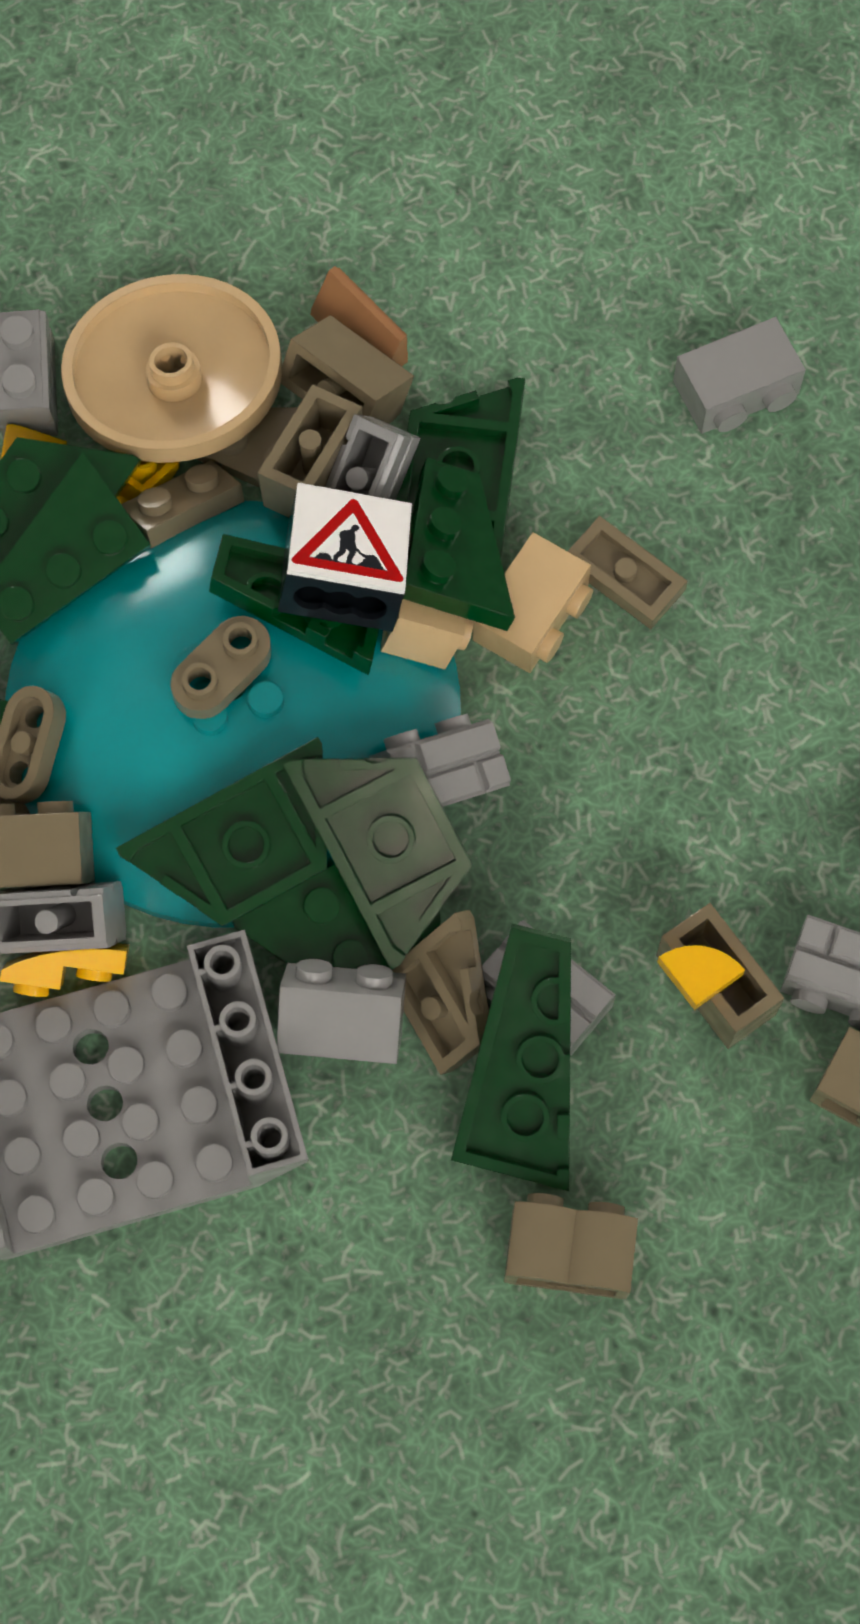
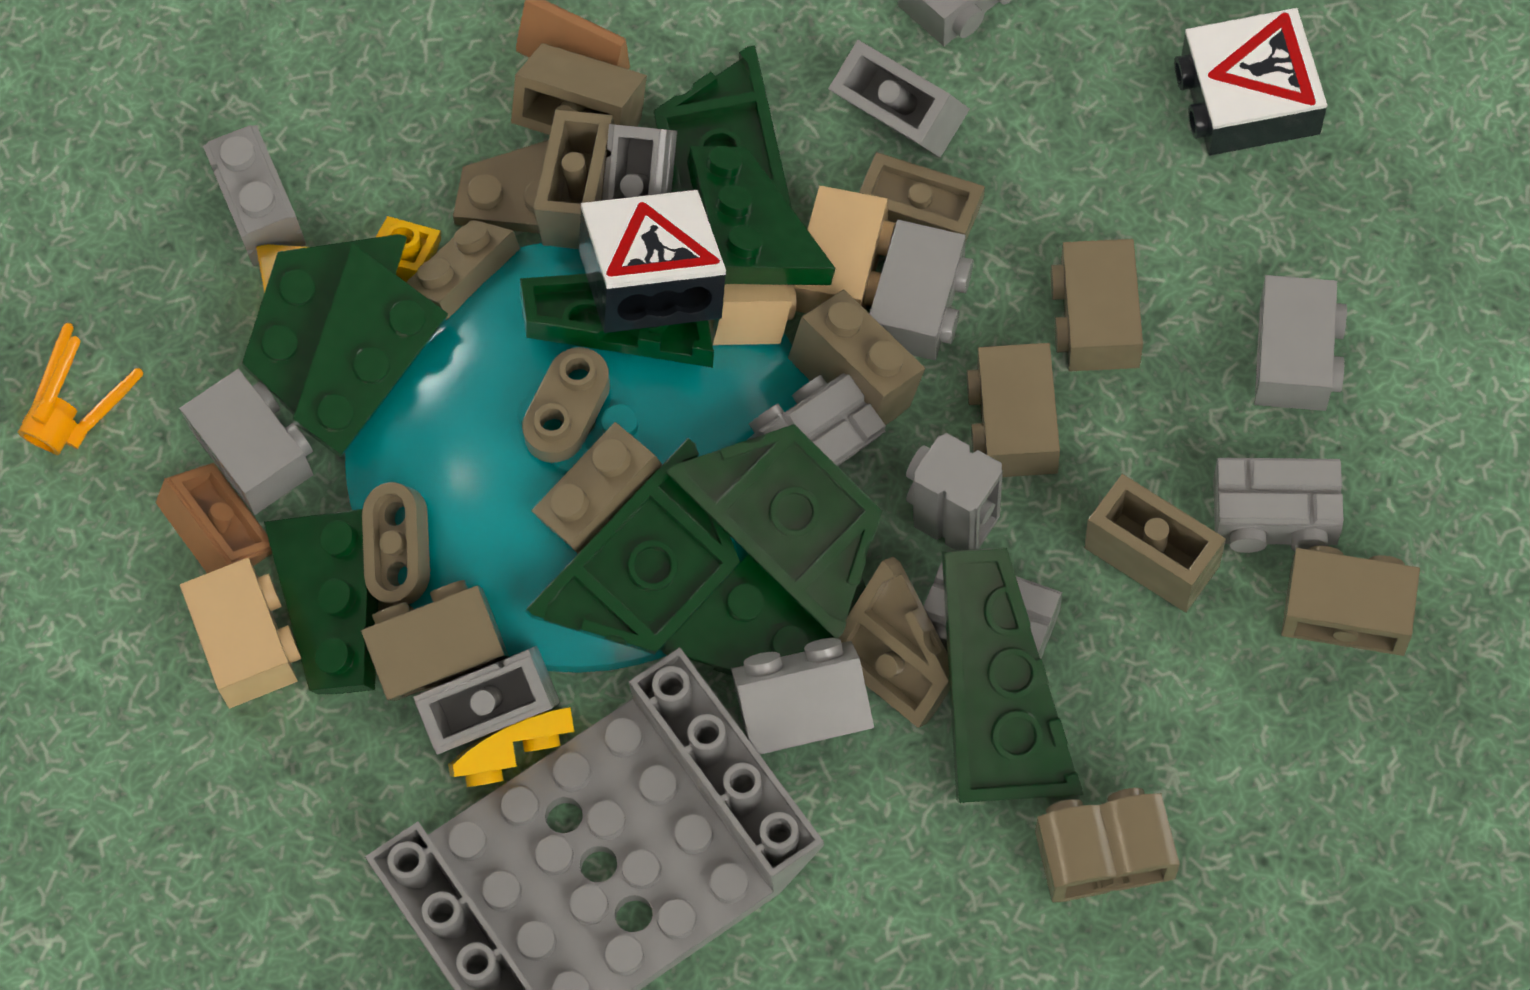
camera: 15 degrees left, 5 degrees down
(172, 368) = (402, 141): tan dish -> none
(220, 755) = (596, 487): none -> dark tan plate
(504, 688) = (848, 340): none -> dark tan brick
(550, 867) = (955, 492): none -> light grey brick
(590, 660) = (920, 285): none -> light grey brick
(637, 472) = (899, 98): none -> light grey brick
(638, 805) = (1016, 408): none -> dark tan brick
(700, 972) = (1137, 539): yellow tile -> none
(753, 730) = (1100, 305): none -> dark tan brick

